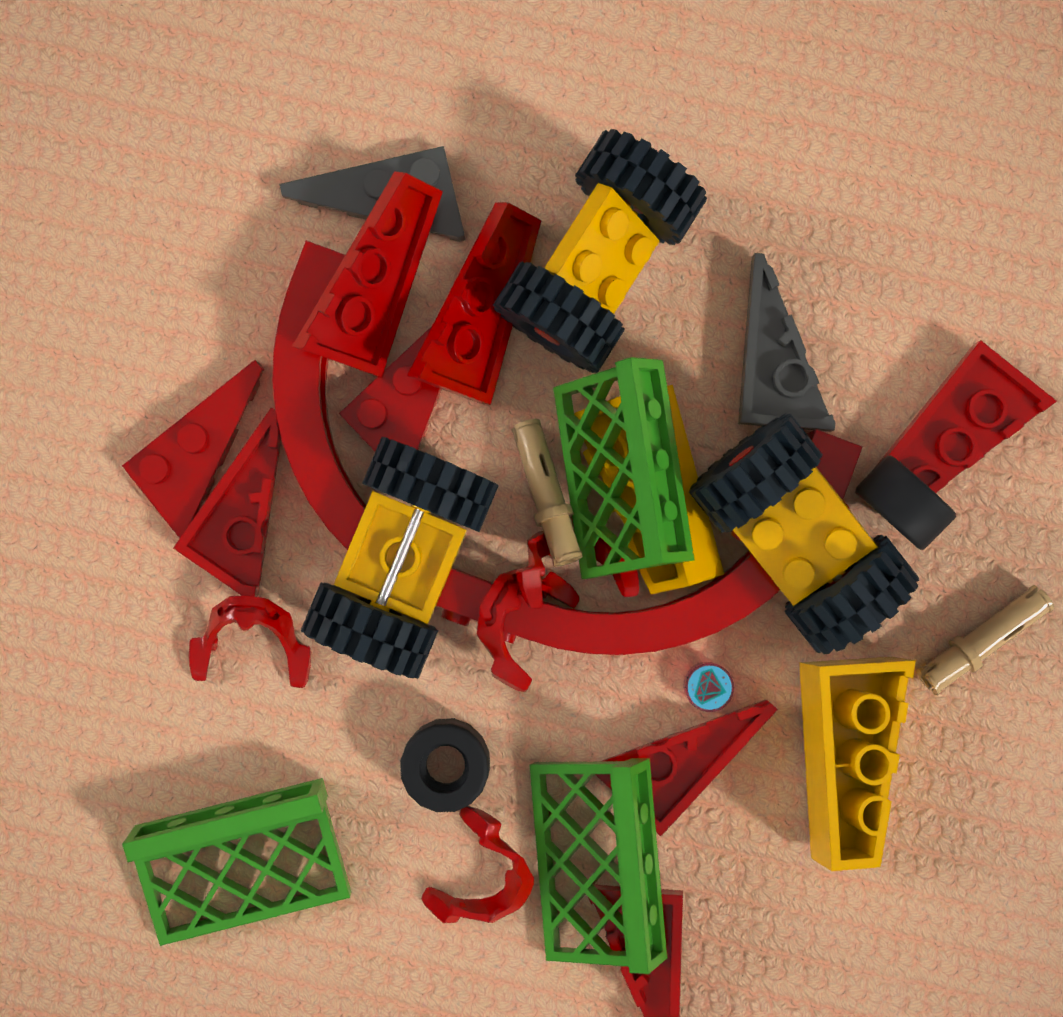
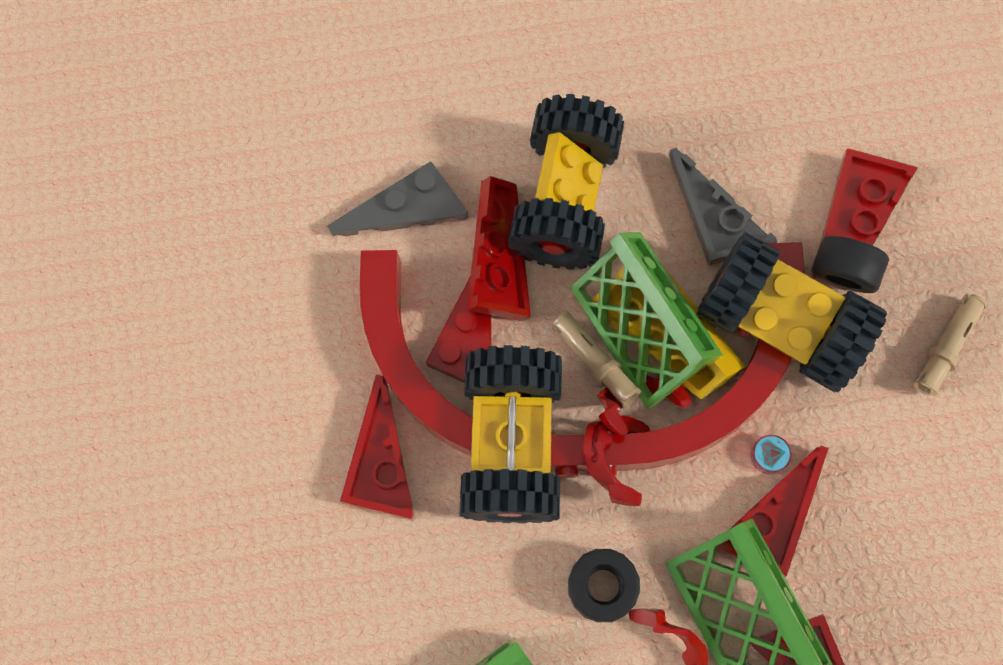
camera: 15 degrees left, 15 degrees down
(182, 461) = (324, 439): red wing -> none
(248, 612) = (412, 525): red helmet -> none
(372, 284) = (417, 264): red wing -> none
(850, 753) = (896, 459): yellow wedge -> none

